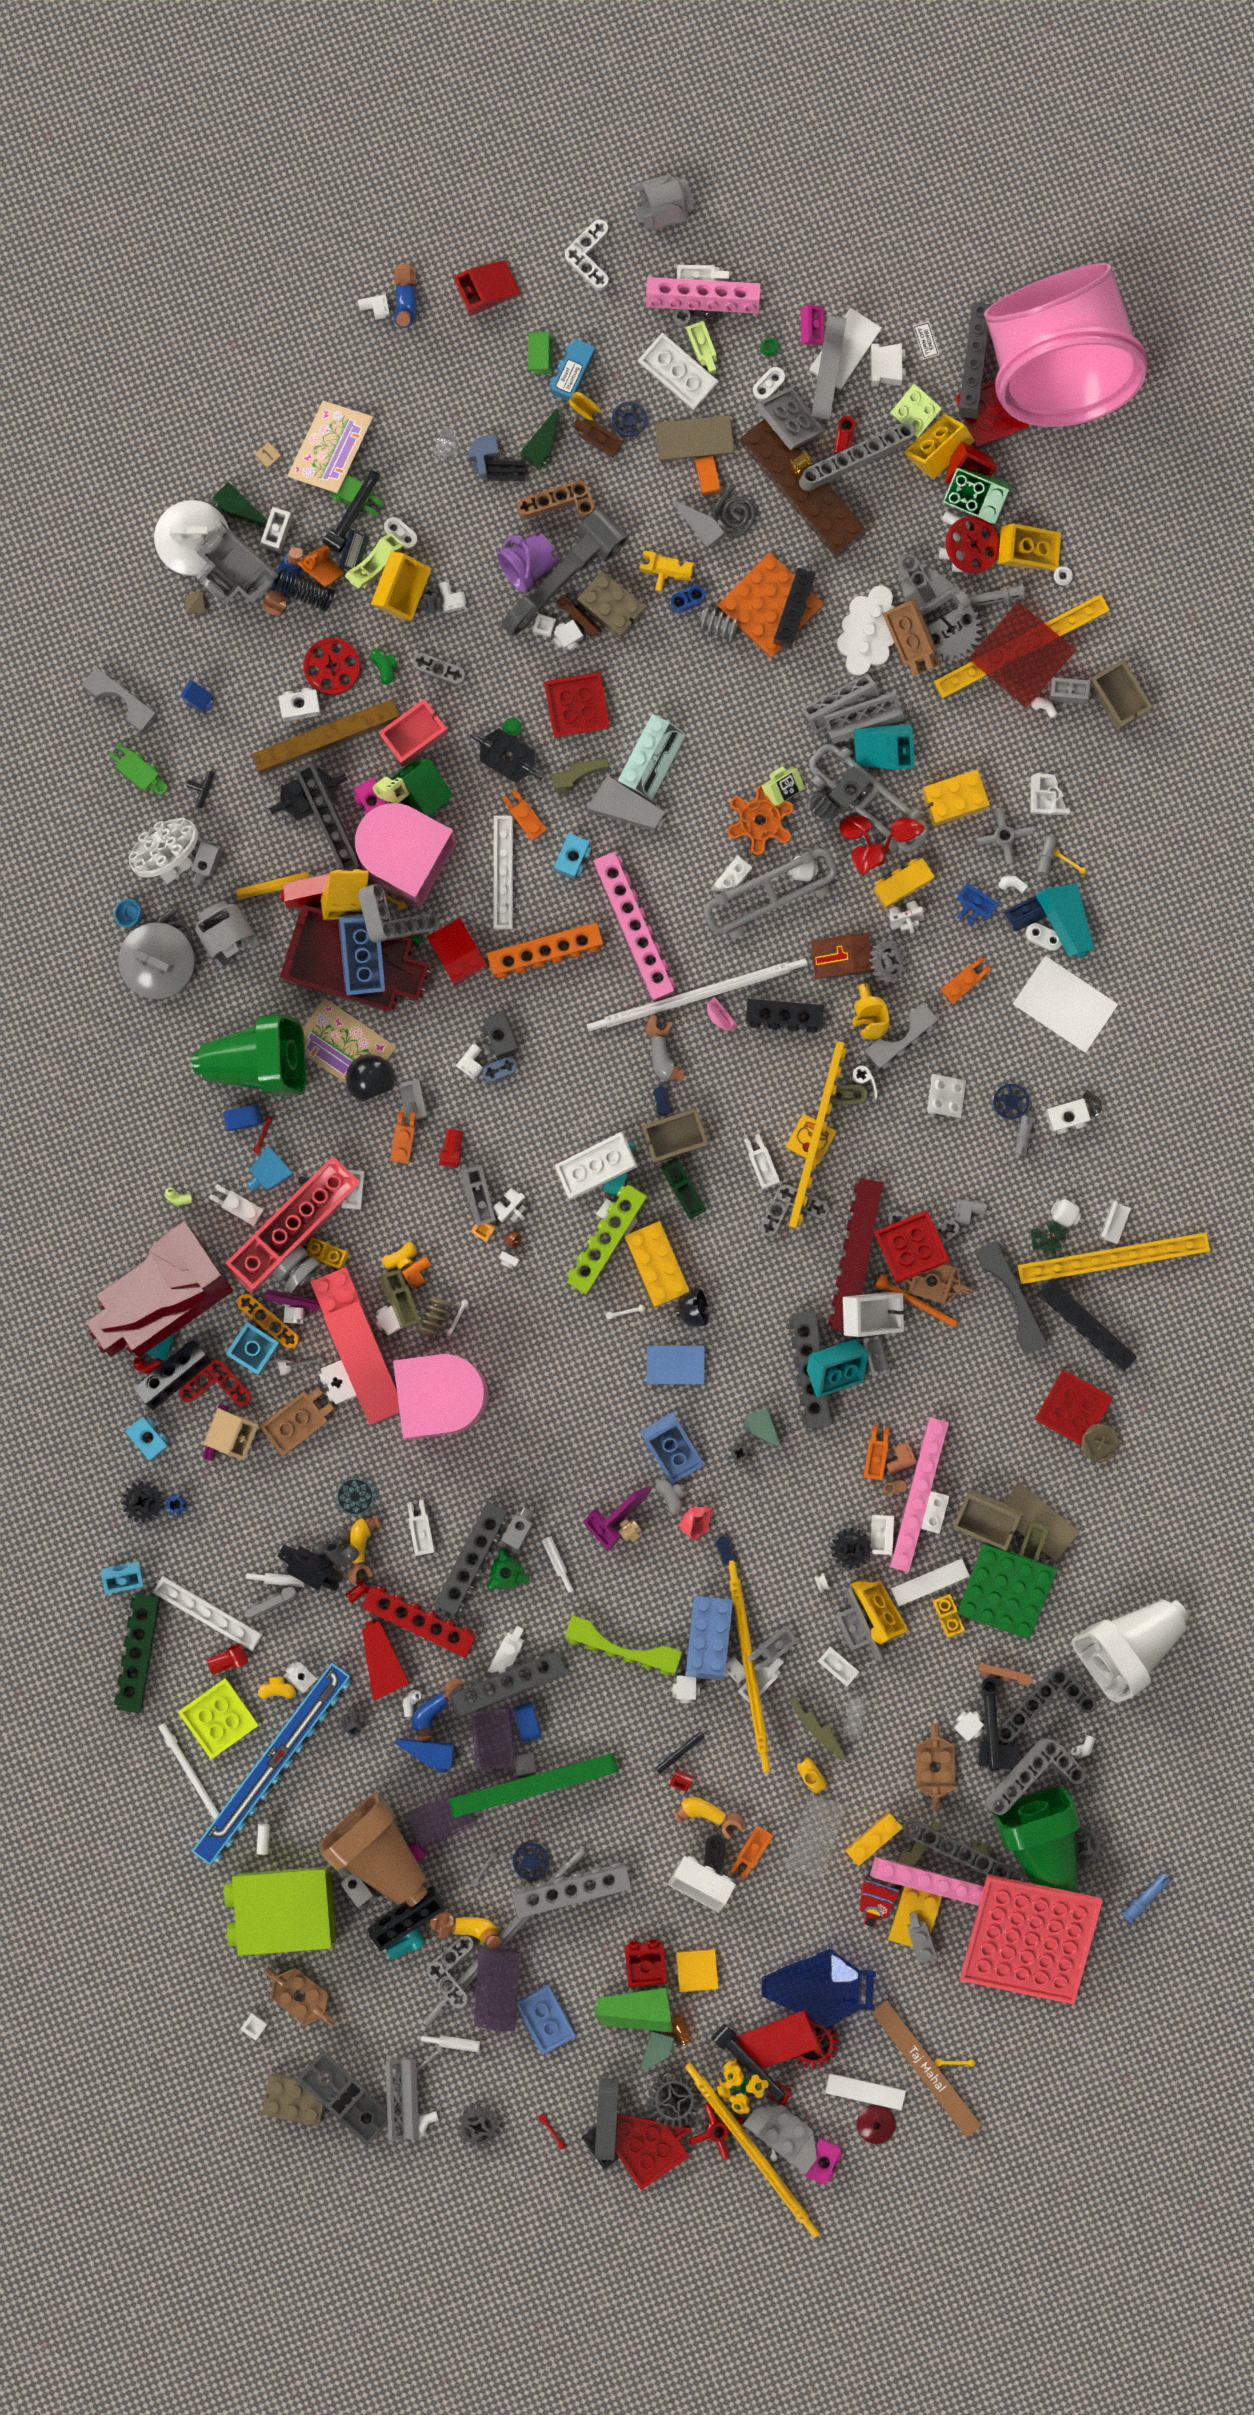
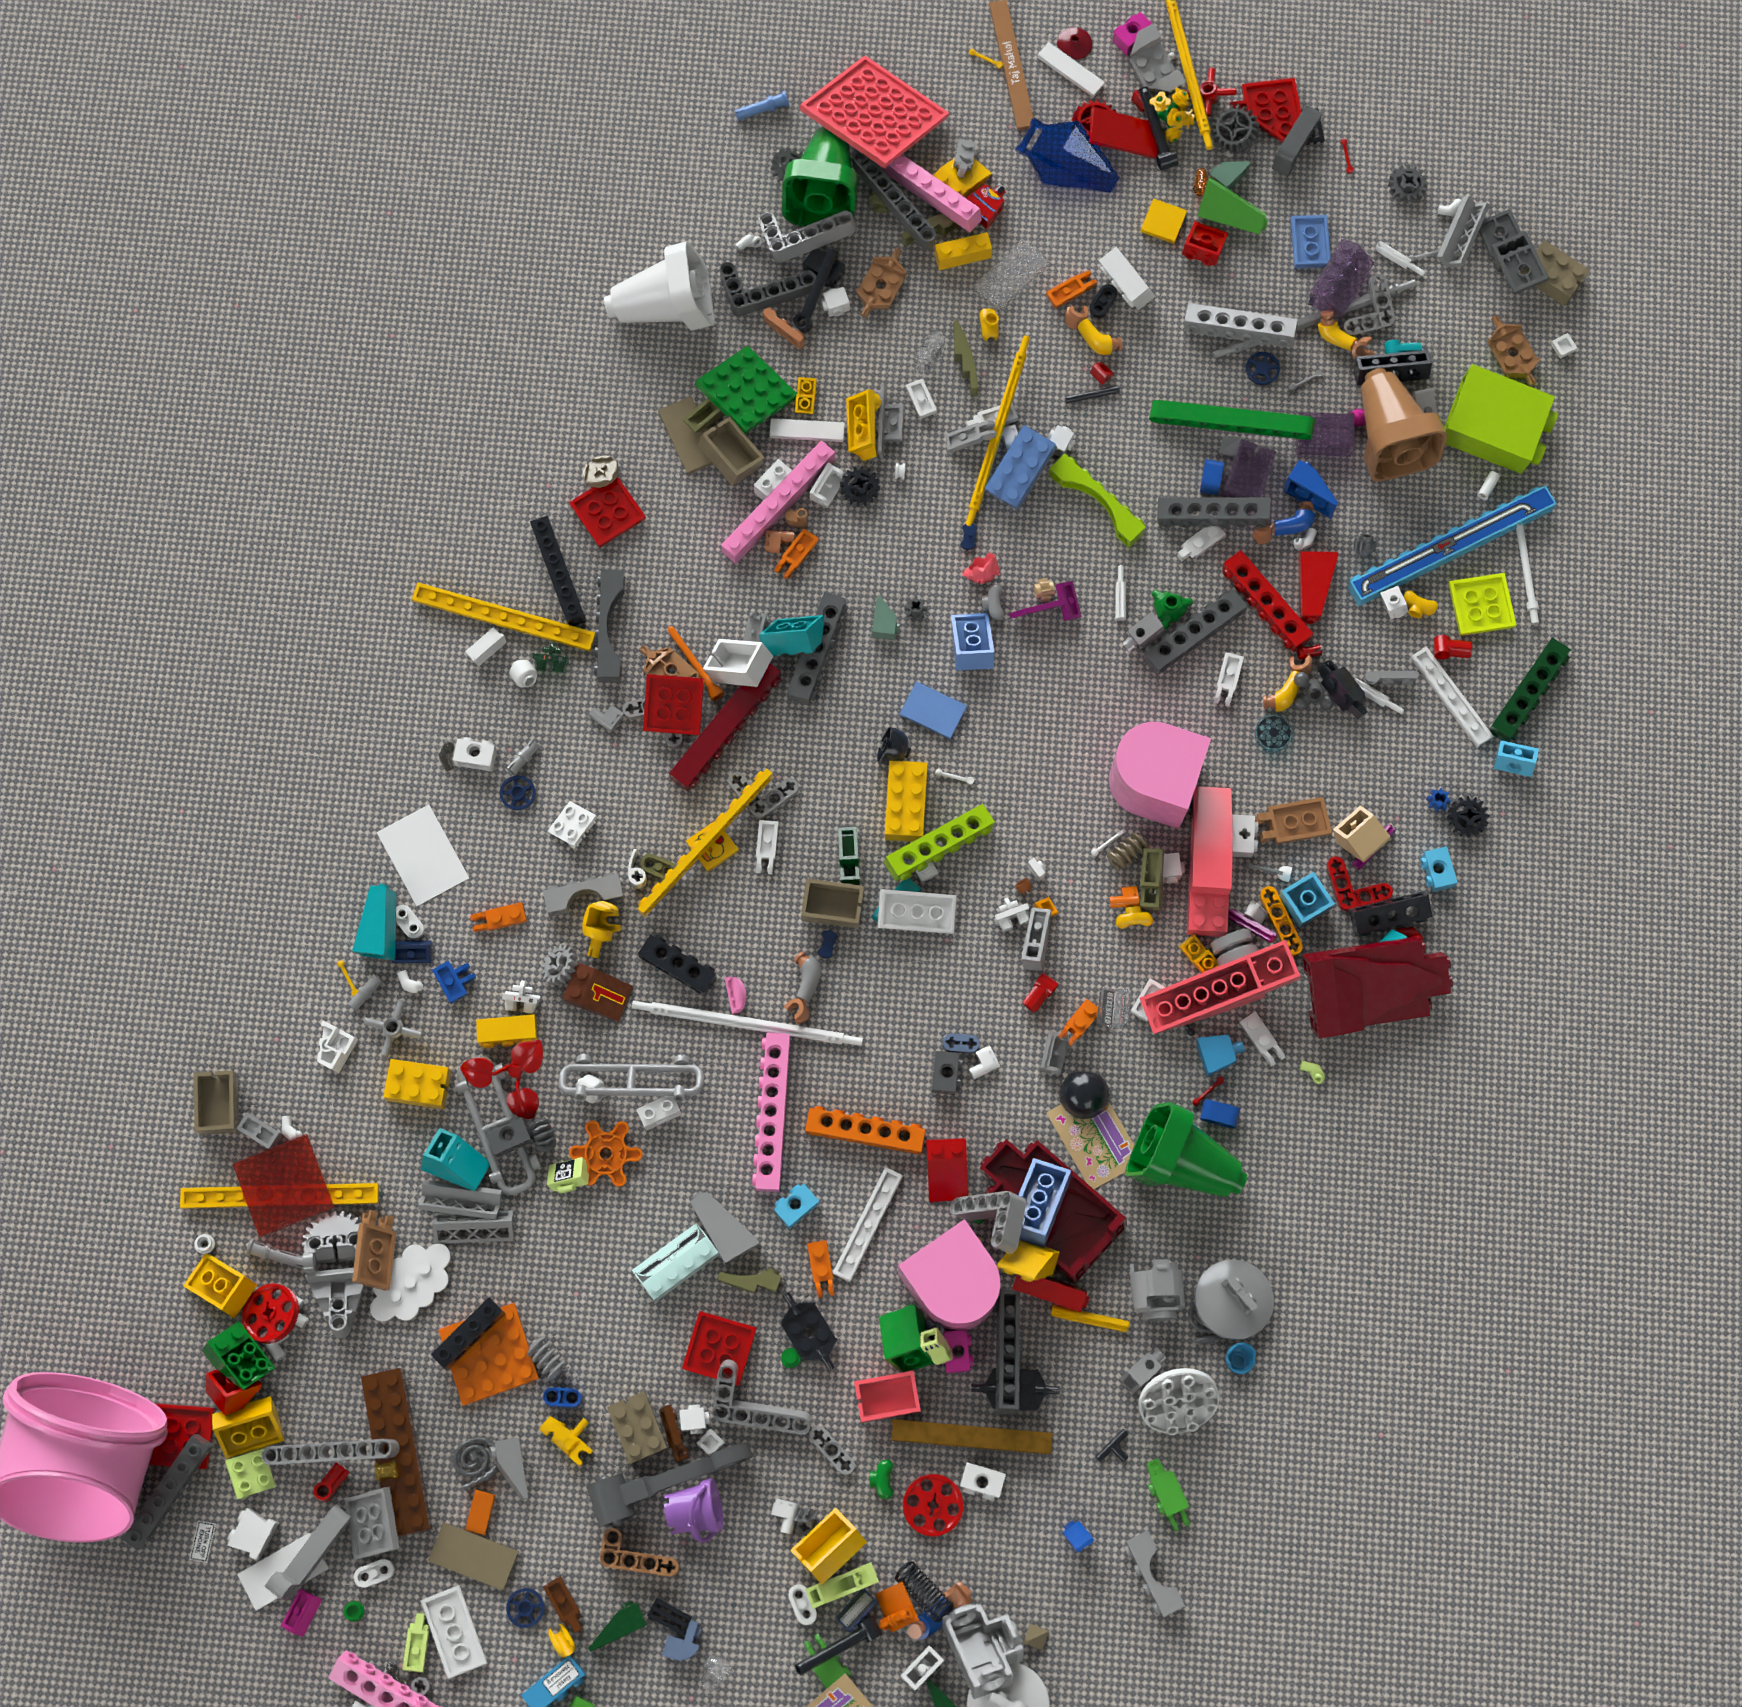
camera: 155 degrees left, 10 degrees down
(380, 1166) = (1113, 1007): none -> clear panel
(520, 667) = (753, 1409): none -> light grey beam

